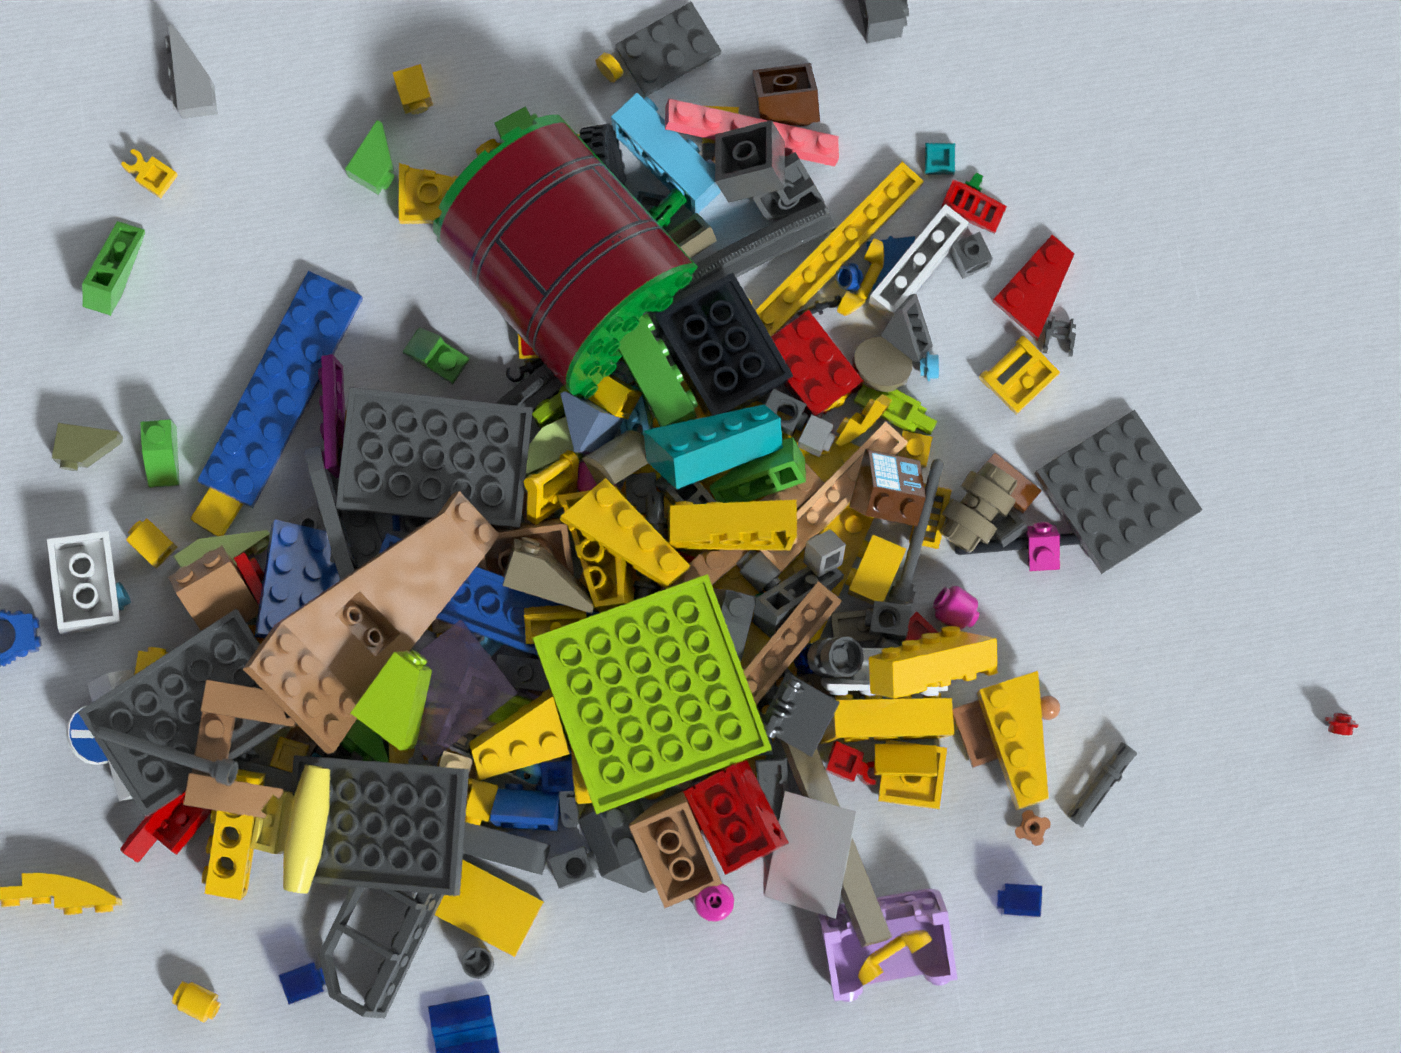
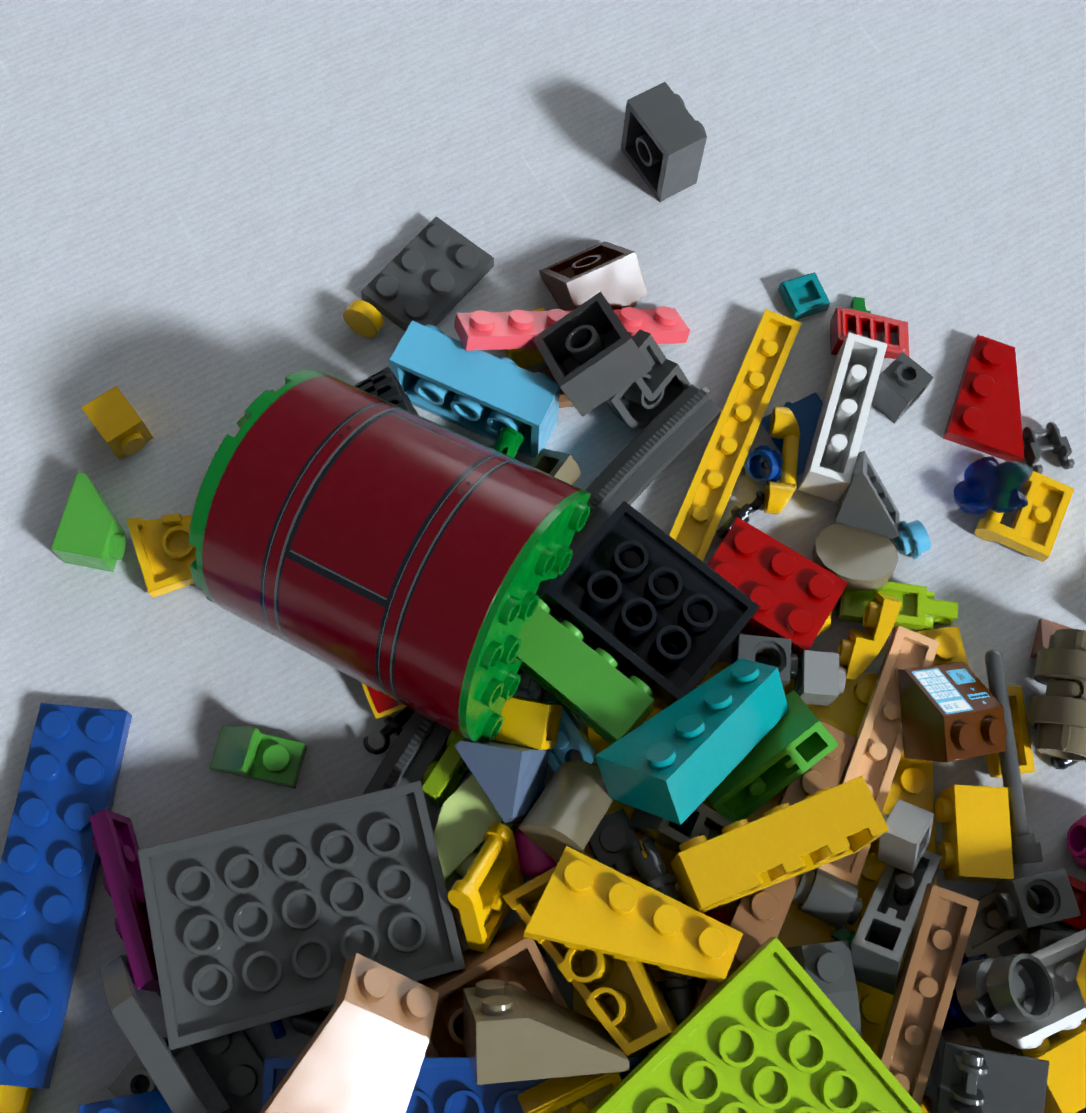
camera: 25 degrees left, 10 degrees down
(1003, 349) = (992, 486): none -> clear blue plate

